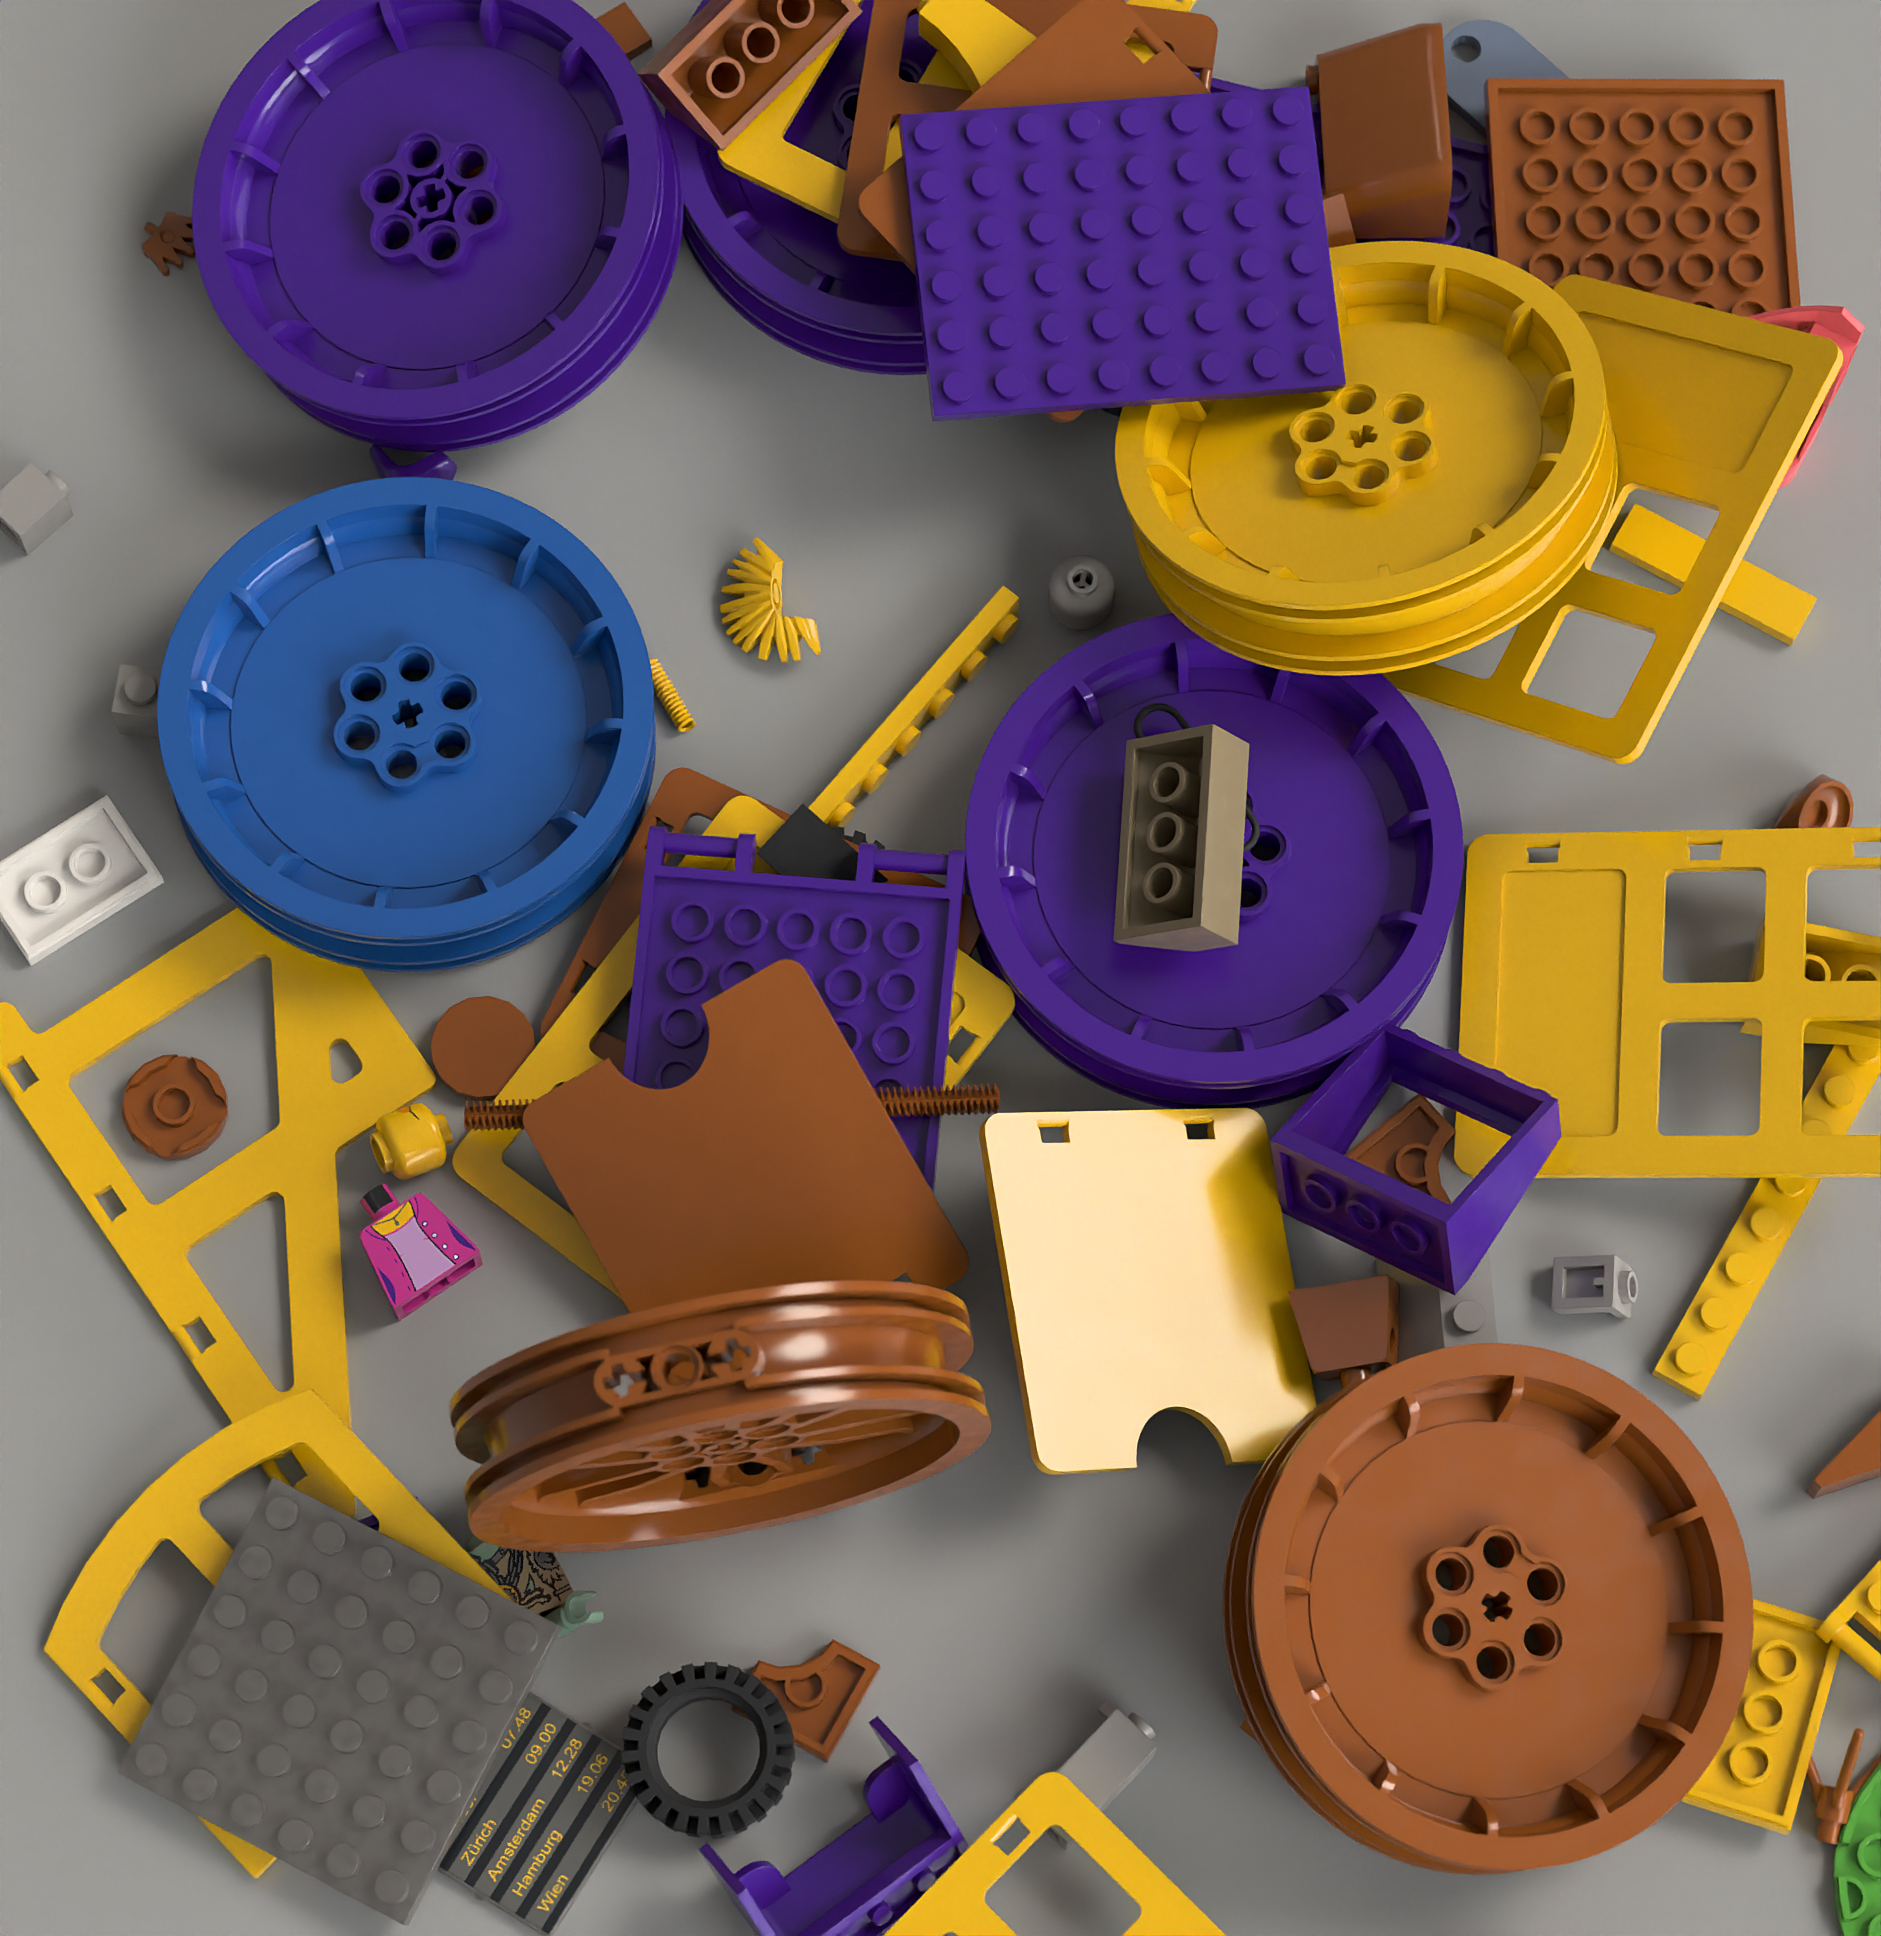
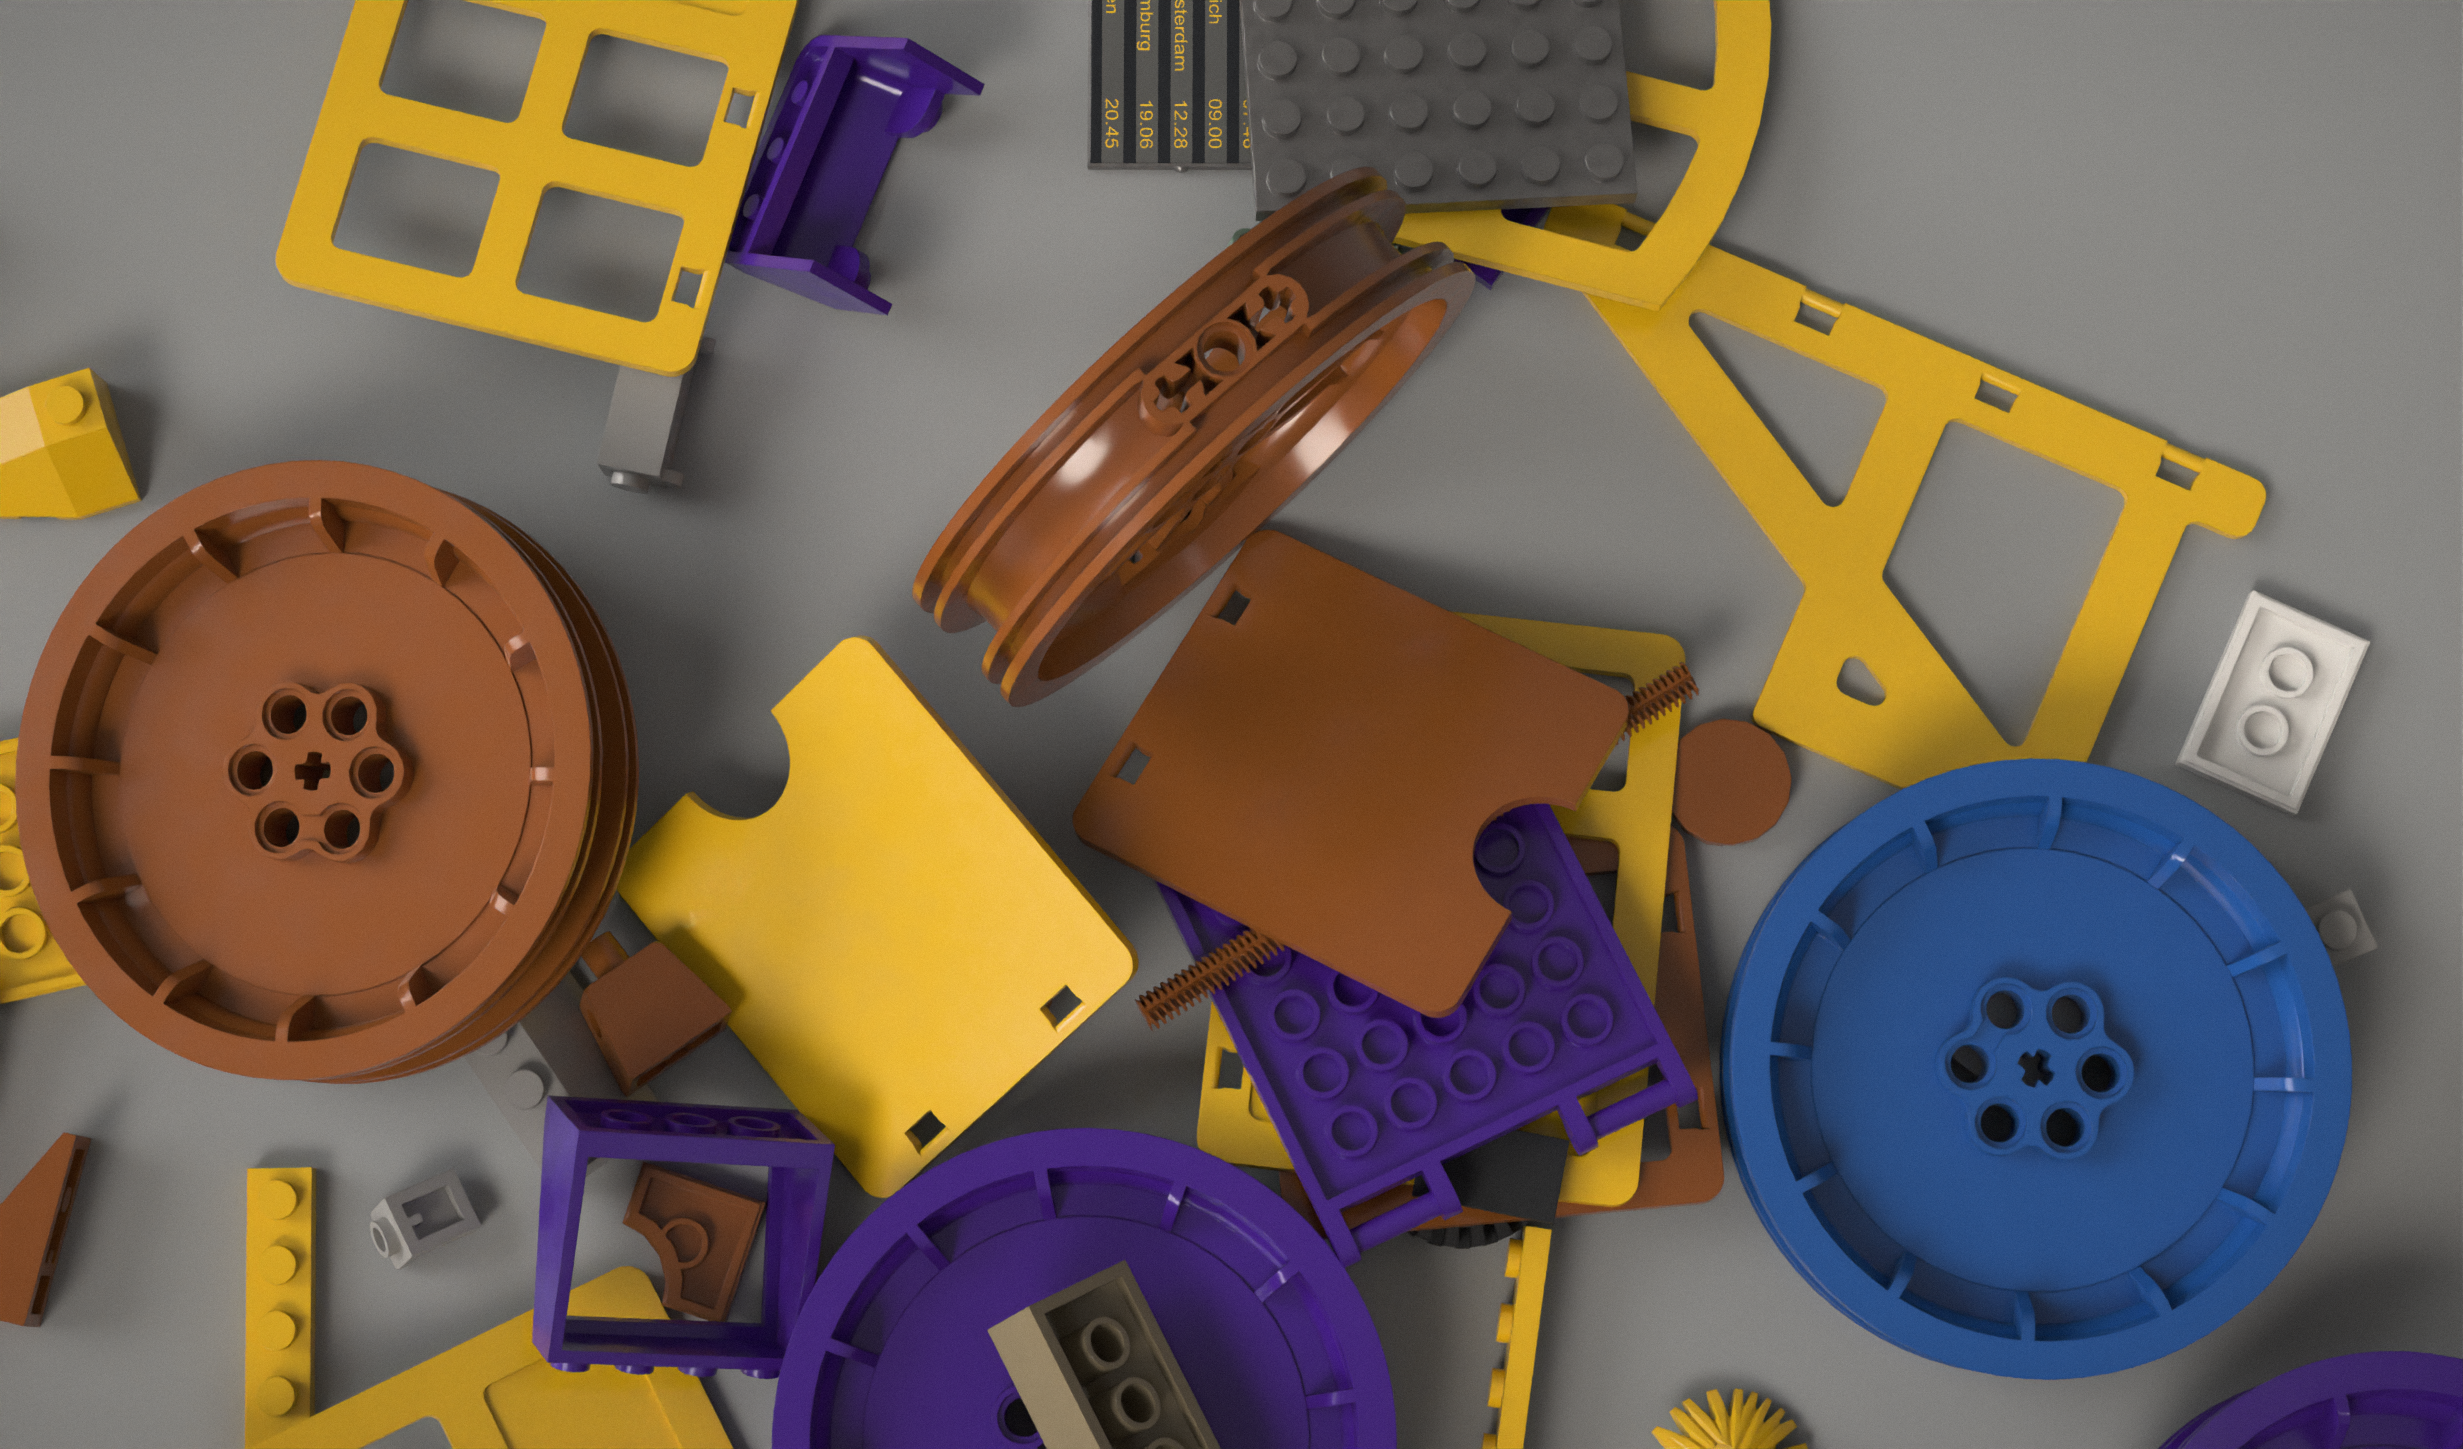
camera: 150 degrees right, 10 degrees up
(175, 1107) = (1999, 533): dark orange tile -> none
(410, 1141) = (1733, 633): yellow head -> none
(414, 1249) = (1659, 525): torso -> none
(433, 466) = (2213, 1364): dark purple hair -> none
(661, 1703) = (1031, 131): black tyre -> none
(670, 698) = (1785, 1288): yellow piece -> none
(819, 1695) = (977, 320): dark orange tile -> none

